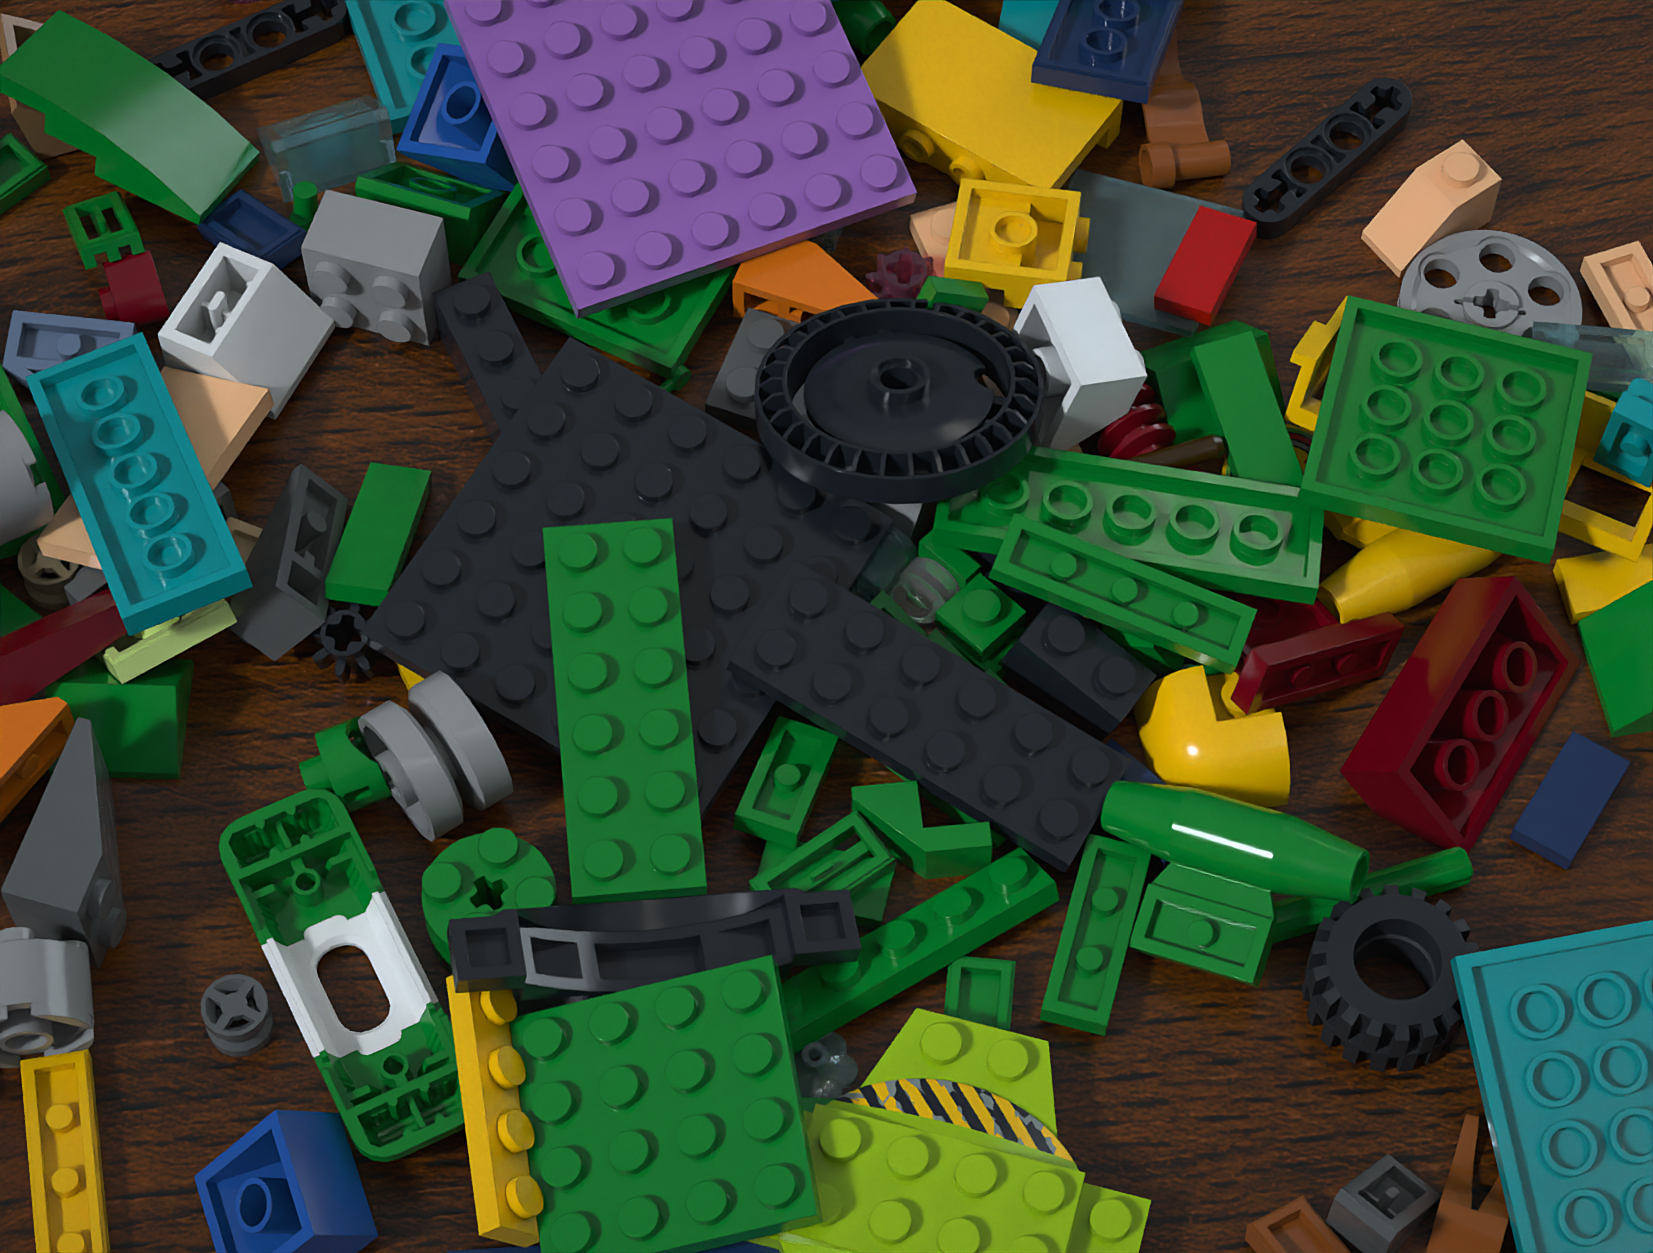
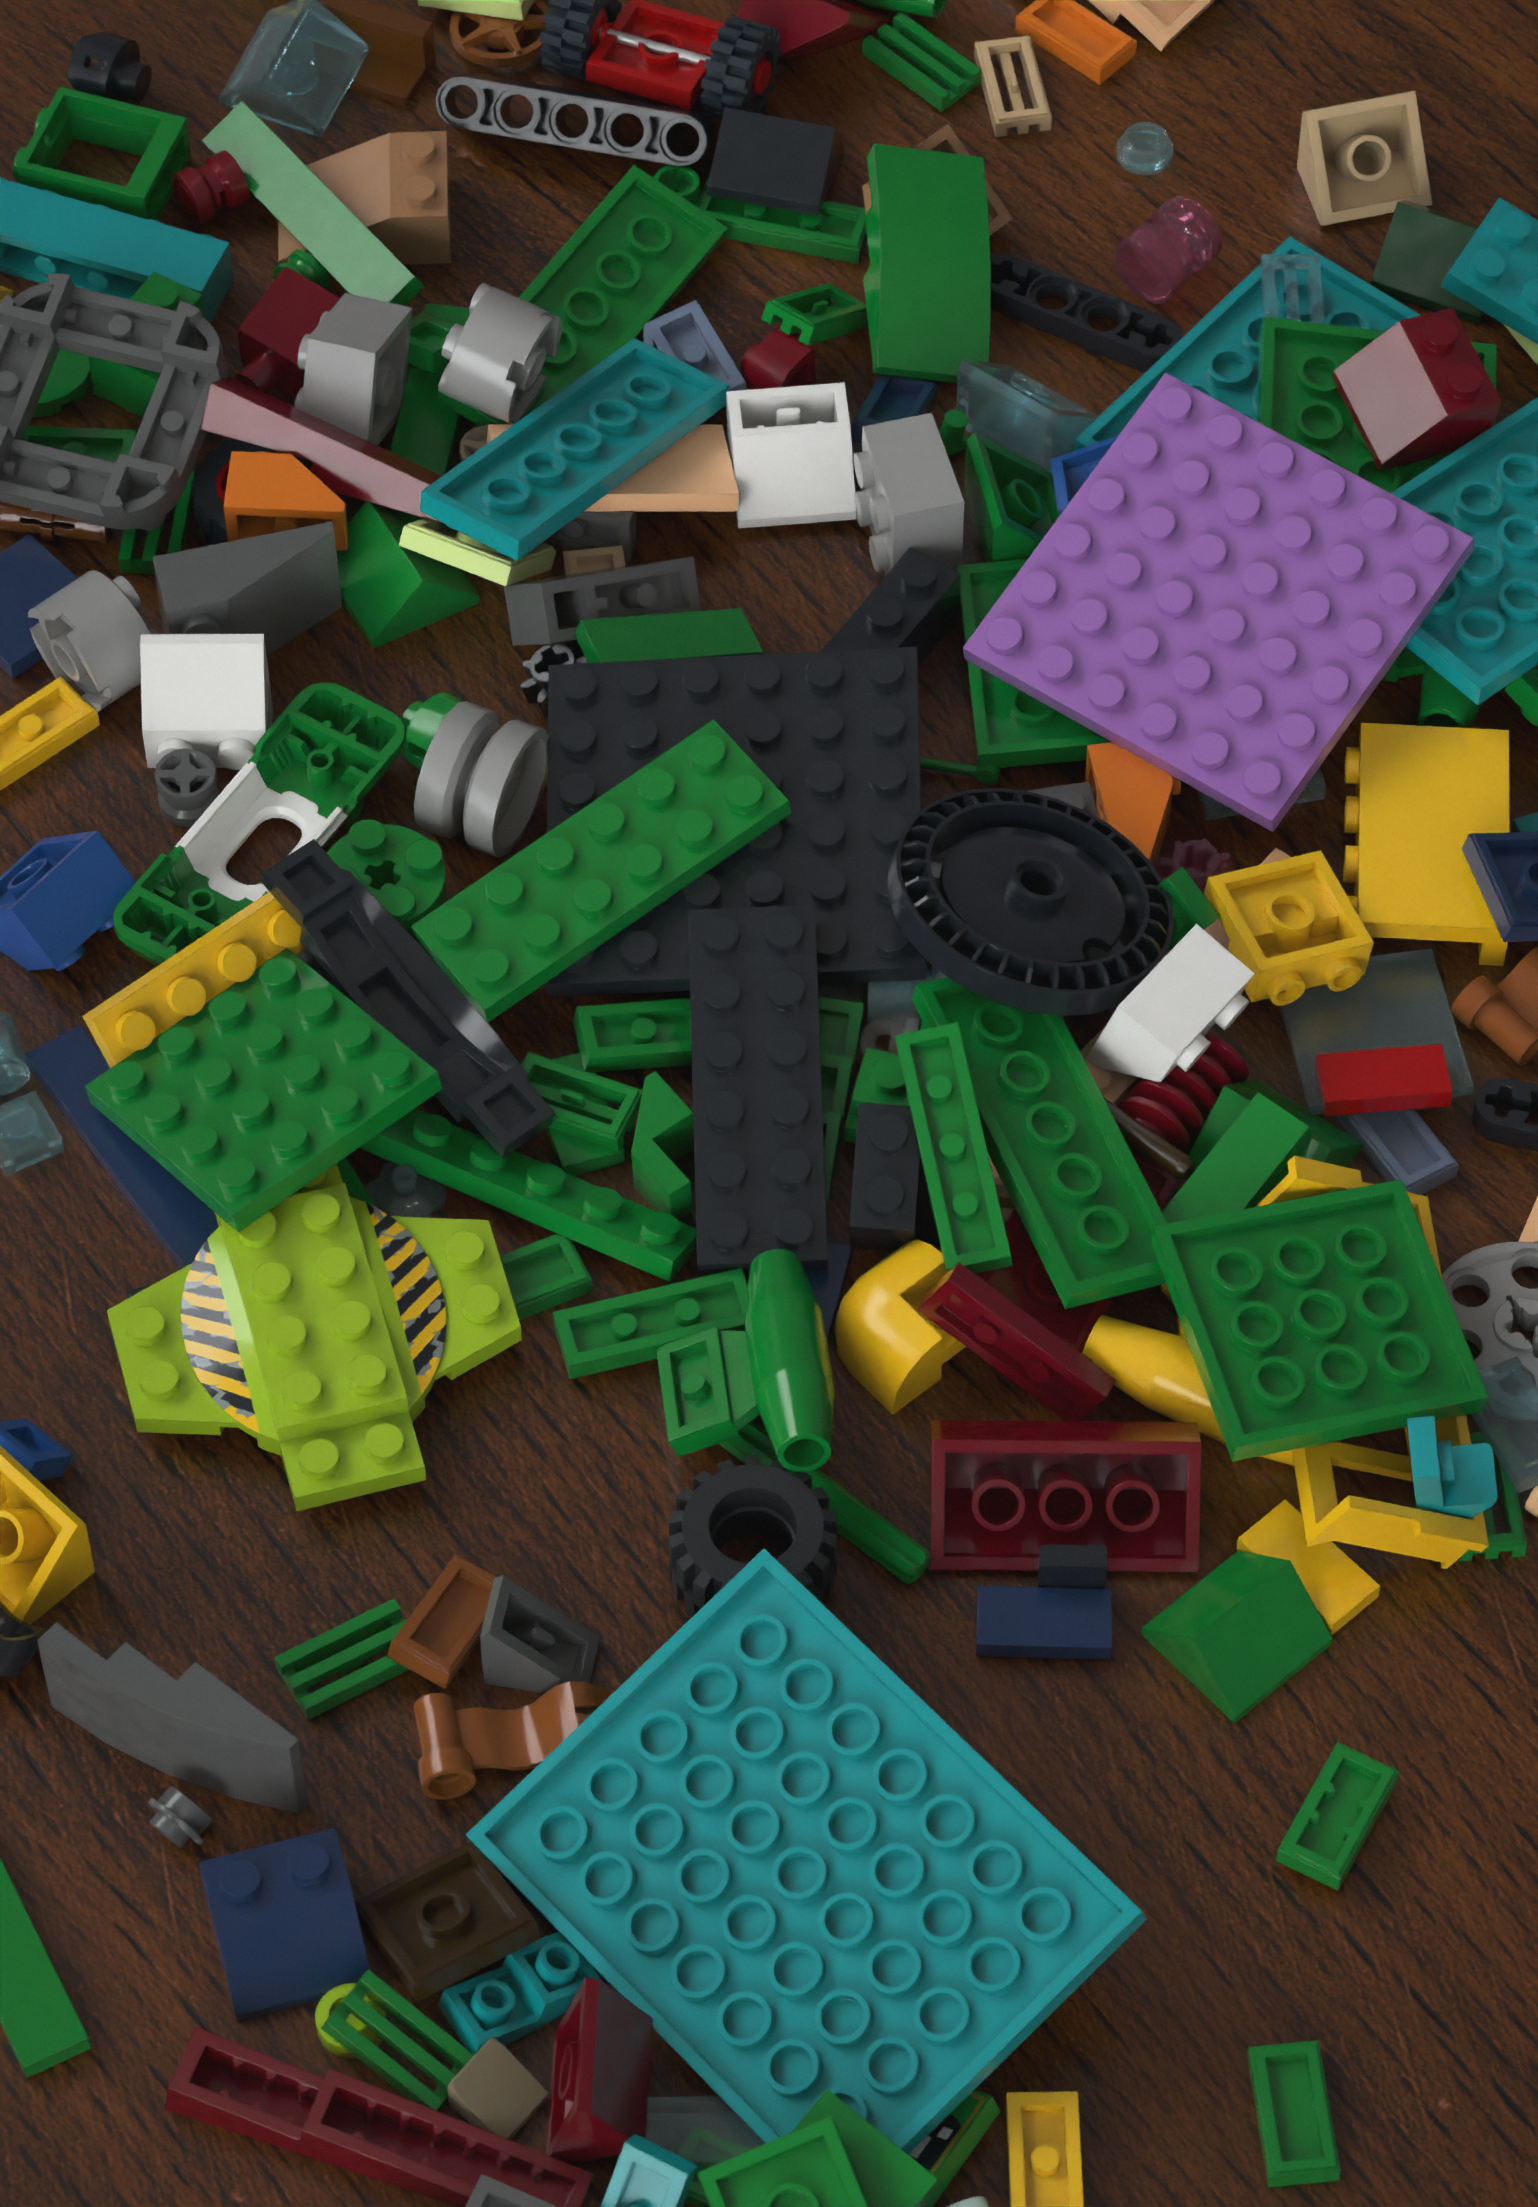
camera: 60 degrees right, 5 degrees down
(168, 944) = (204, 695): none -> white slope
(1266, 297) = (1402, 1148): none -> sand blue tile
(1543, 749) = (1072, 1566): none -> black tile

